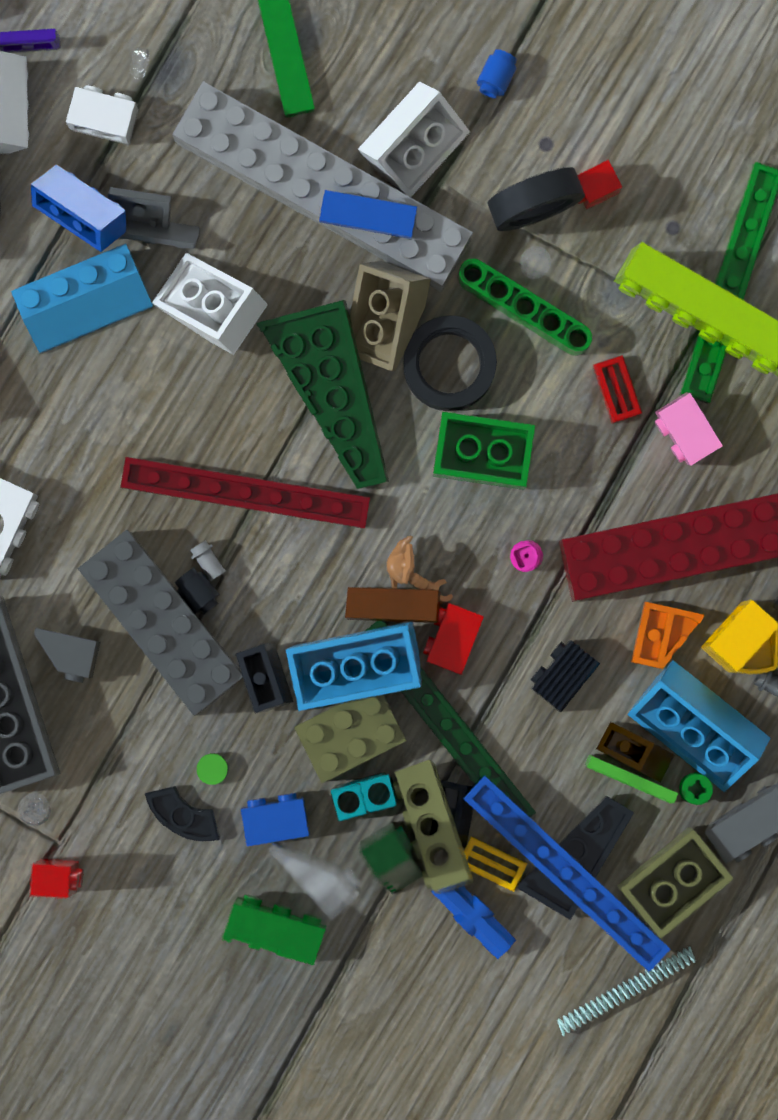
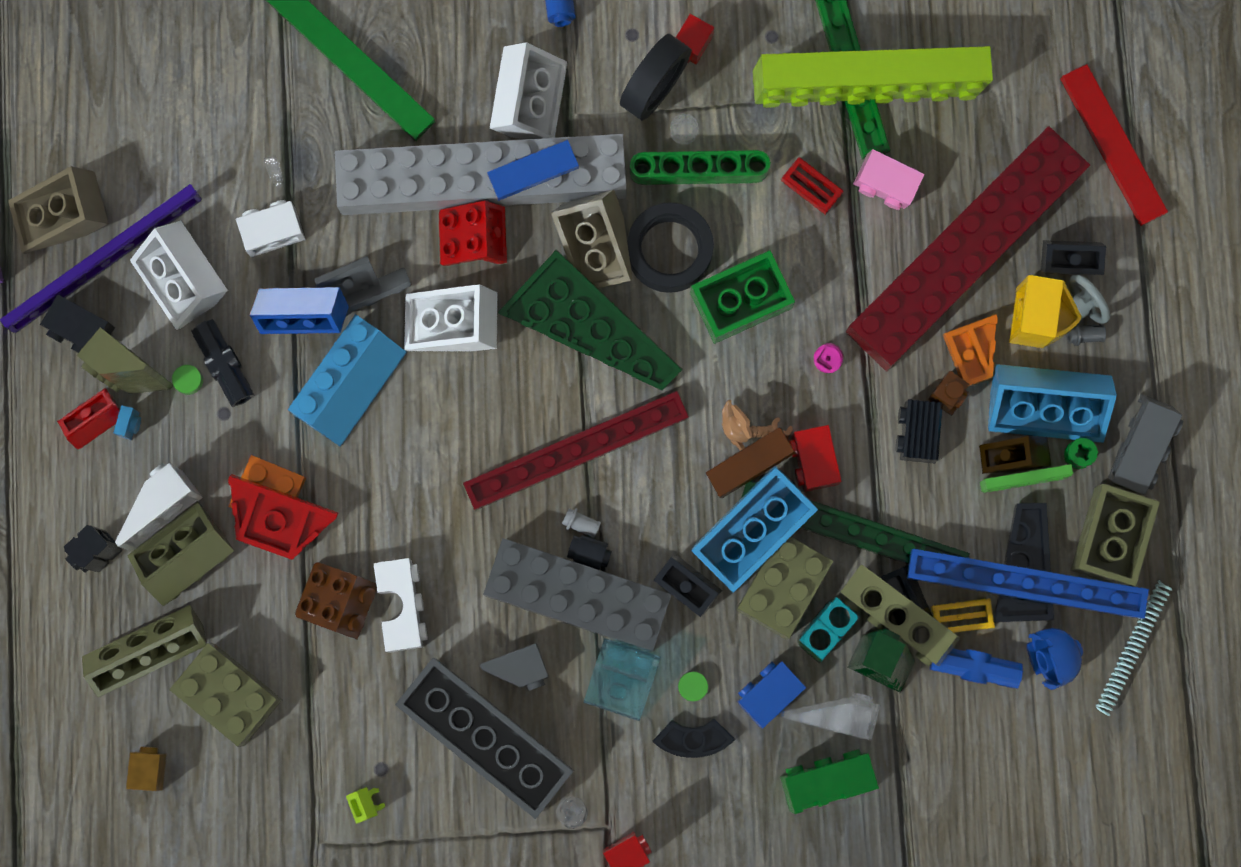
camera: 30 degrees left, 5 degrees down
(153, 722) = (622, 679): none -> clear light blue slope
(281, 237) = (473, 233): none -> red bracket
(549, 953) = (1055, 656): none -> blue cylinder
(614, 658) = (950, 392): none -> reddish brown brick

